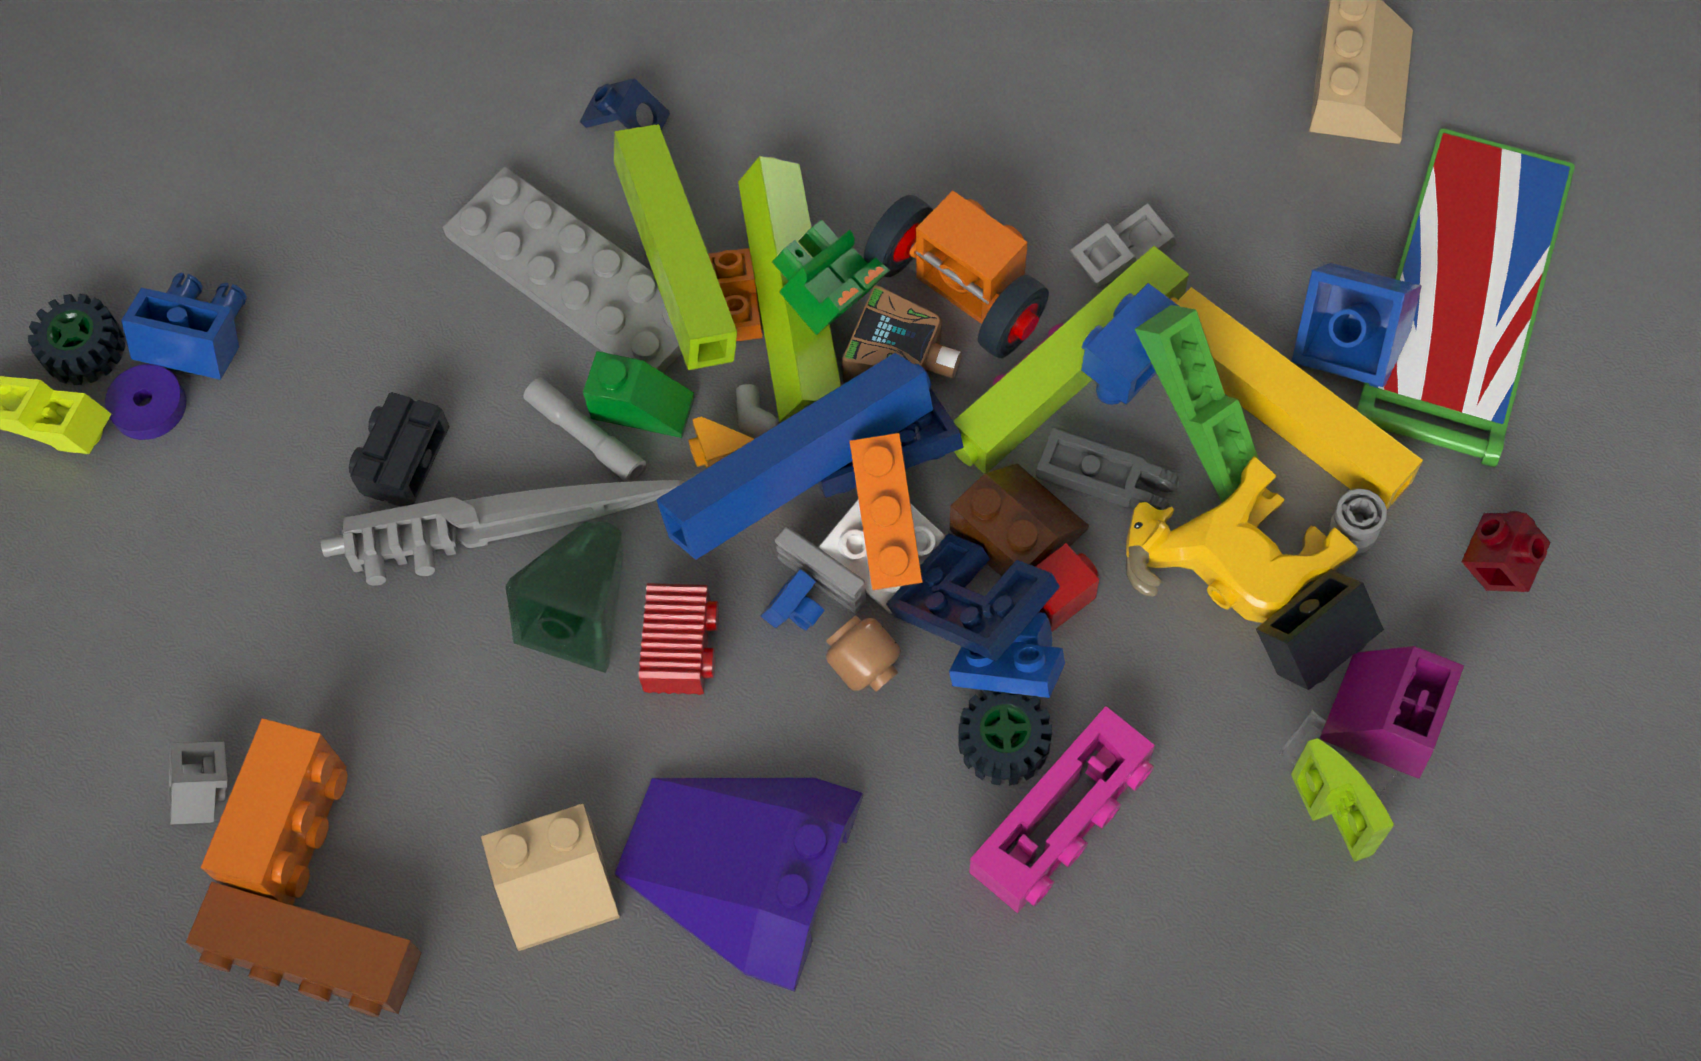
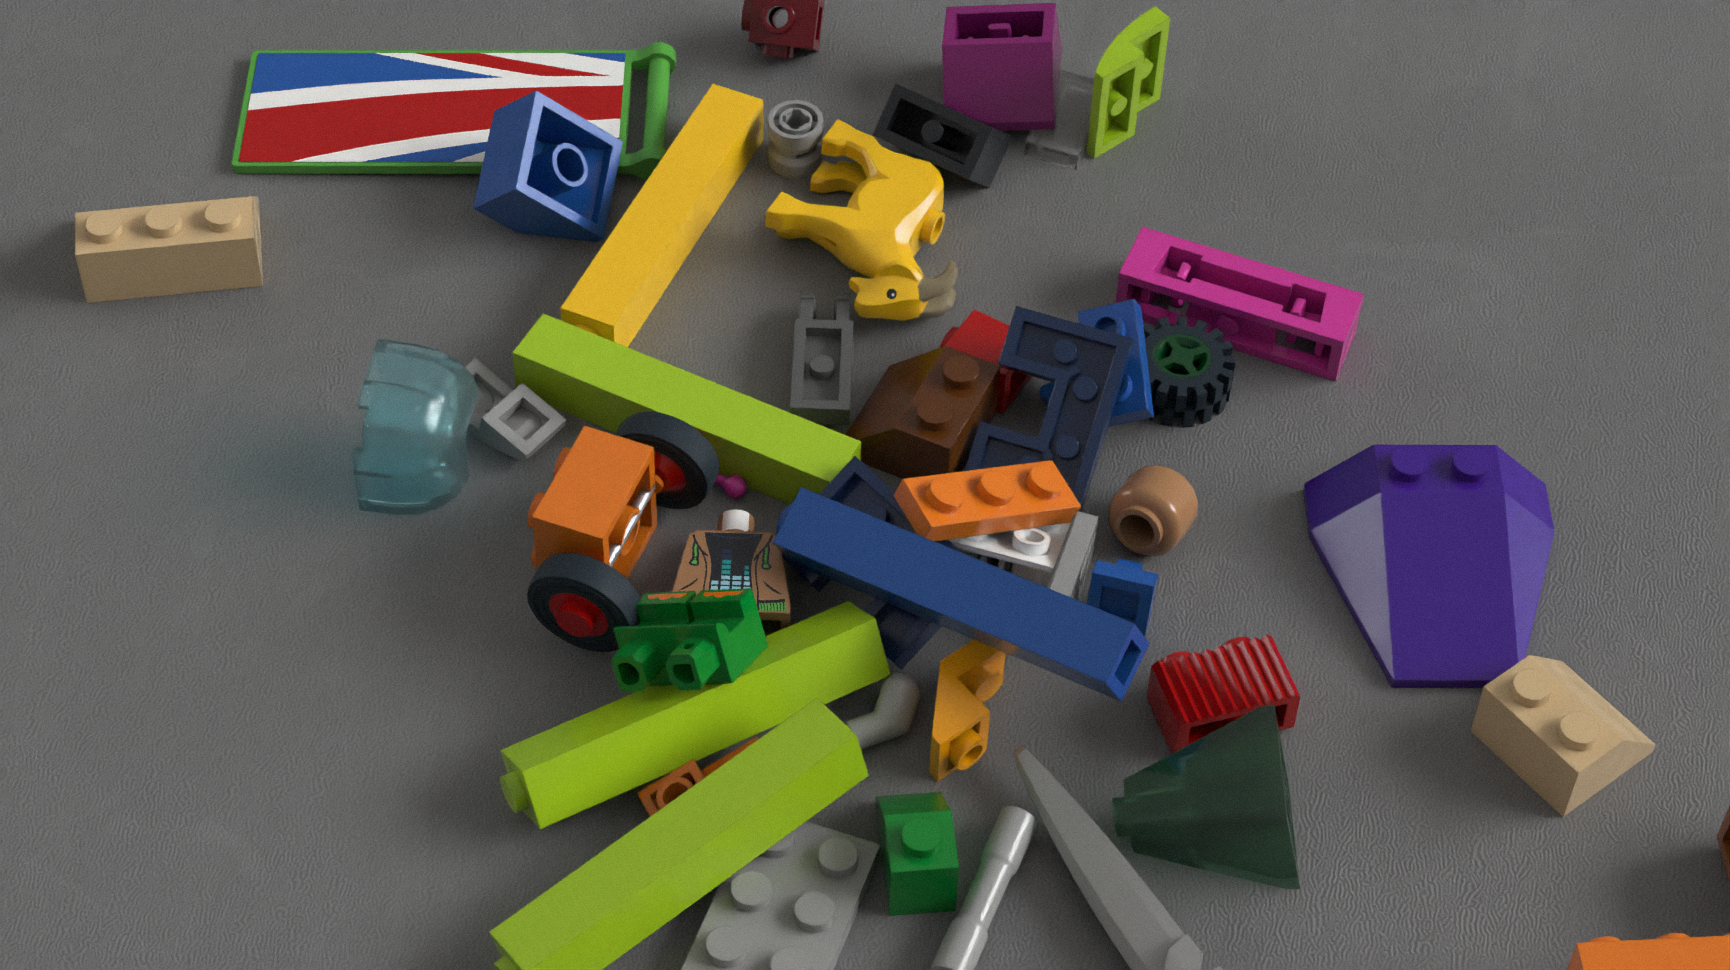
camera: 115 degrees left, 15 degrees down
(1101, 166) = (413, 429): none -> clear light blue brick
(1115, 353) = (673, 318): blue brick -> none
(1190, 378) = (728, 251): bright green slope -> none

